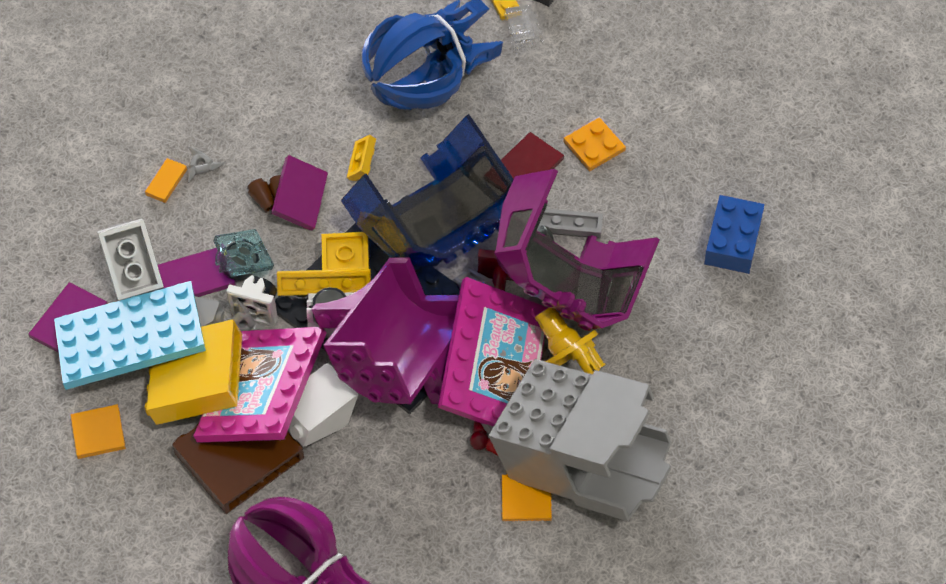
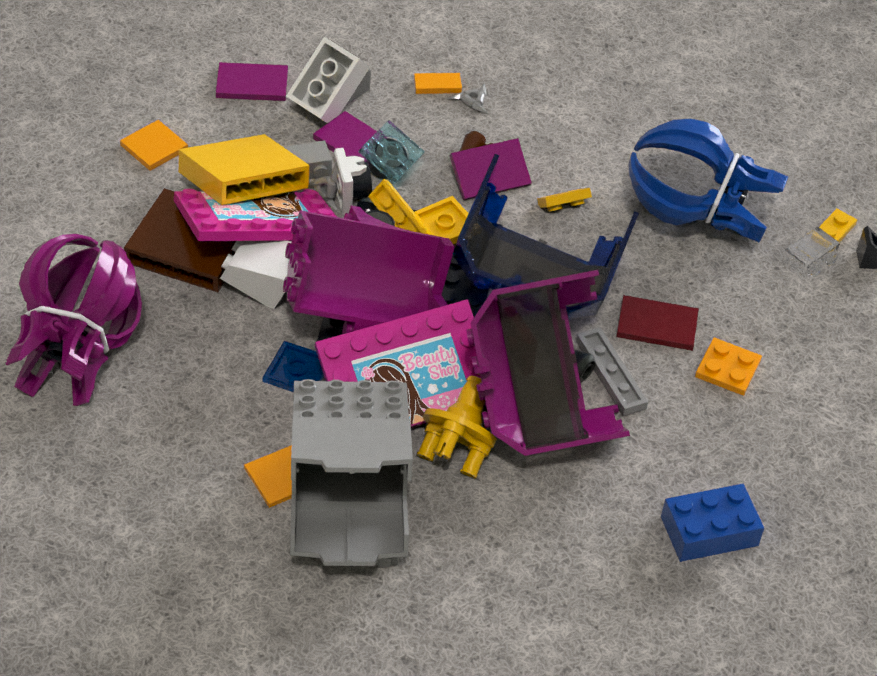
camera: 55 degrees right, 10 degrees down
(128, 335) = (252, 113): plate -> none
(424, 436) = (291, 365): none -> clear blue tile

